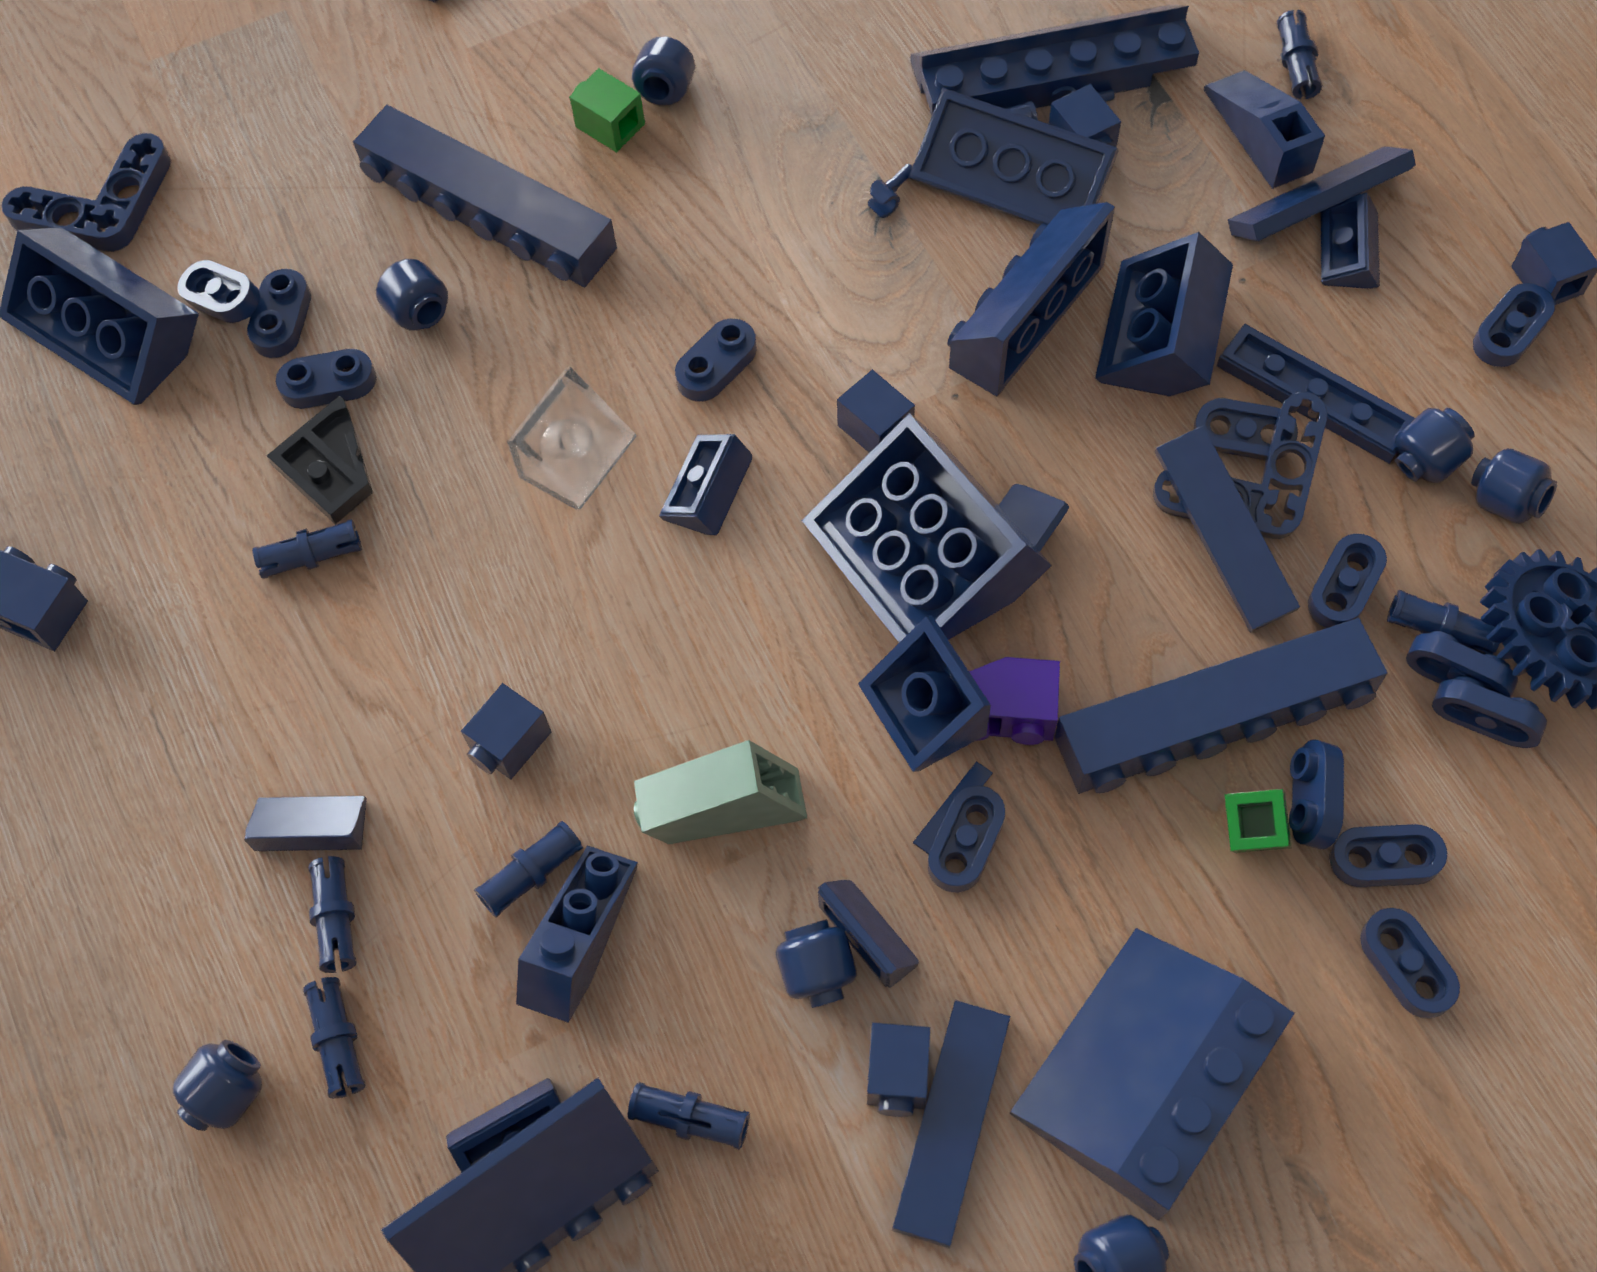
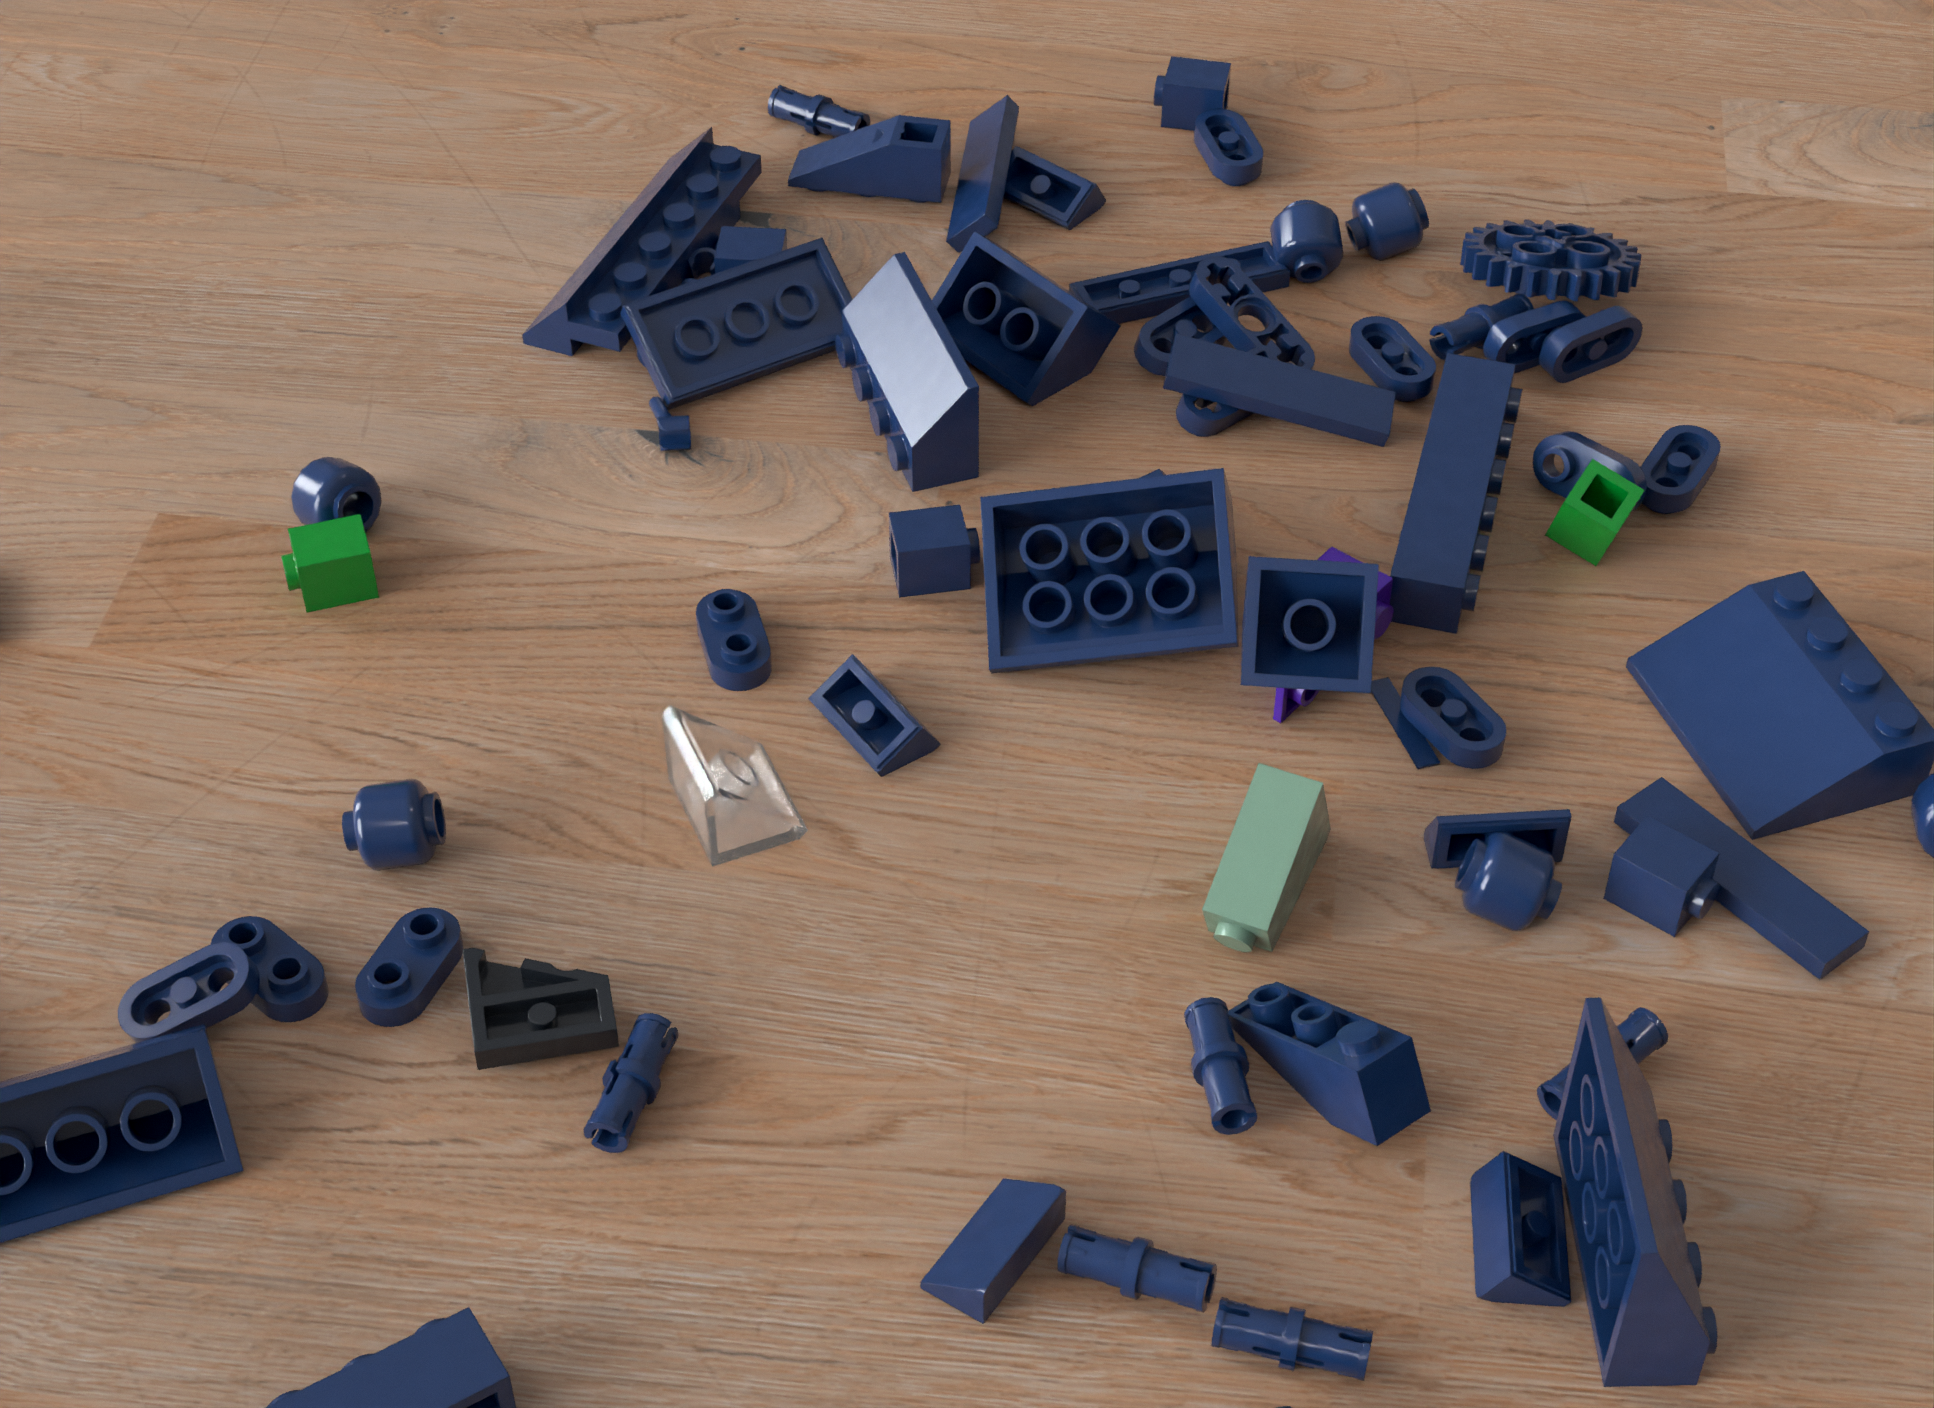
camera: 60 degrees left, 20 degrees down
(486, 196) = (323, 709): dark blue brick -> none
(505, 732) = (1040, 1003): dark blue brick -> none
(1412, 962) = (1788, 507): dark blue plate -> none

